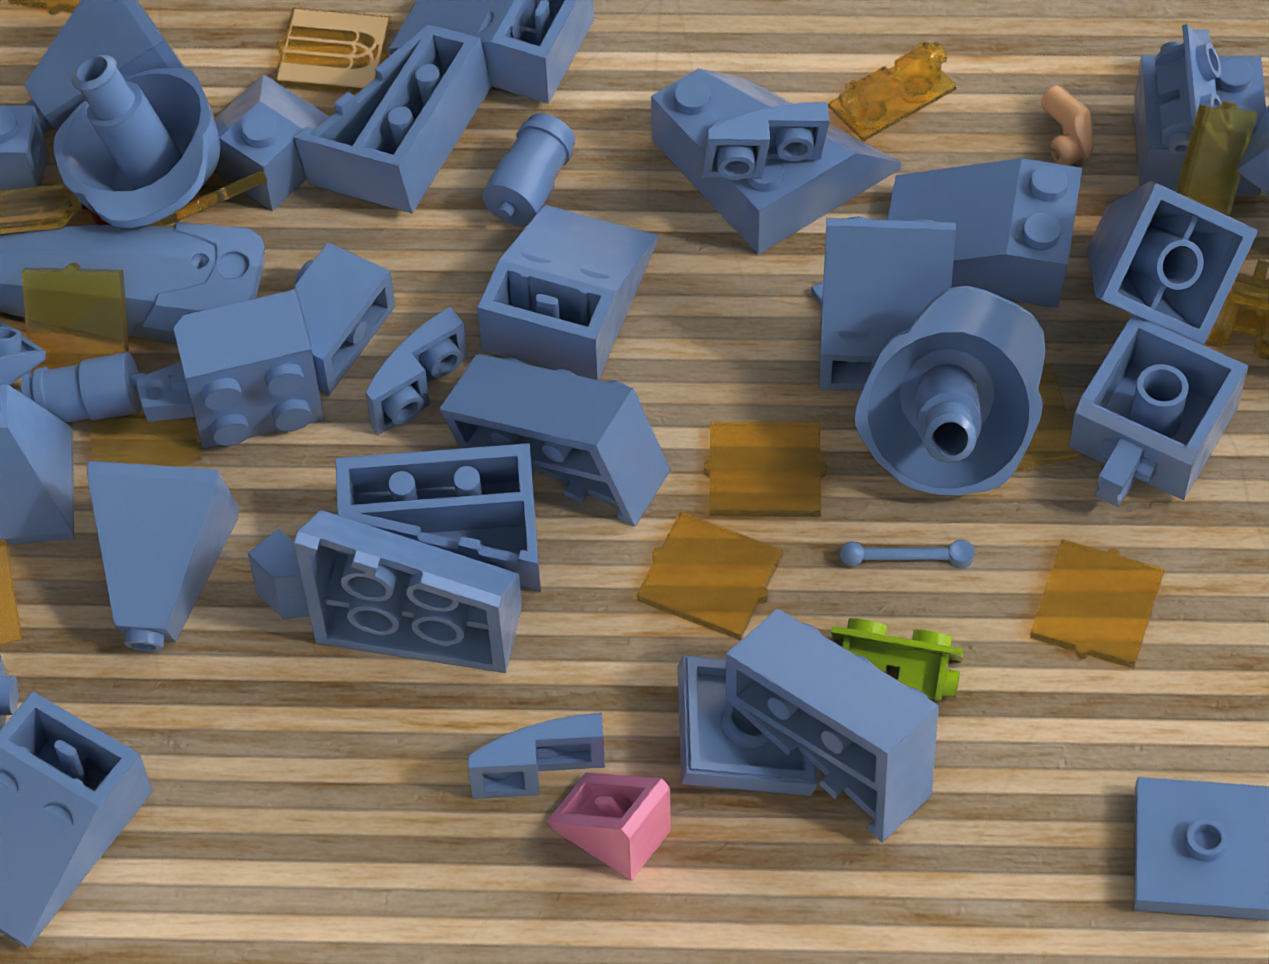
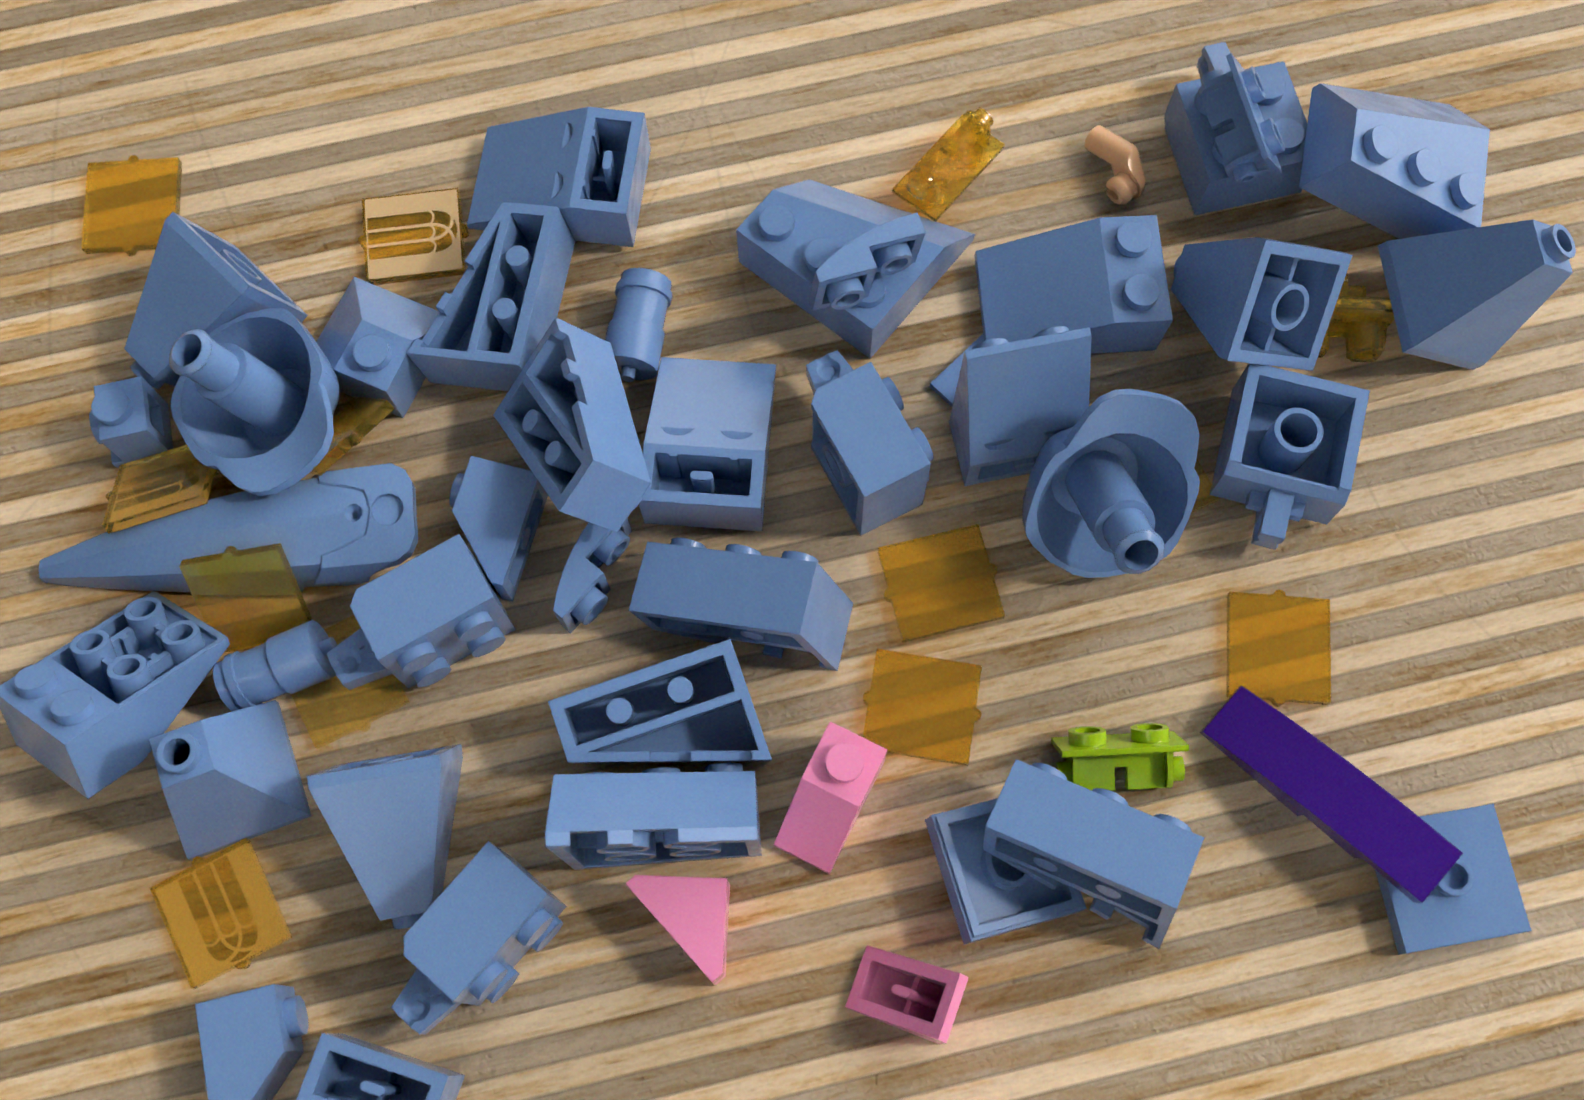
camera: 15 degrees left, 15 degrees up
(205, 652) = (475, 938): none -> medium blue hinge
(279, 576) = (524, 817): medium blue piece -> none
(419, 693) = (692, 913): none -> bright pink slope
(439, 229) = (577, 427): none -> medium blue wedge
(513, 761) = (806, 959): medium blue slope -> none
(590, 623) = (830, 797): none -> bright pink slope
(722, 316) = (865, 442): none -> medium blue hinge
(959, 553) = (1140, 628): medium blue hinge -> none
(1101, 732) = (1331, 794): none -> dark purple slope
(1214, 154) = (1283, 182): clear yellow piece -> none

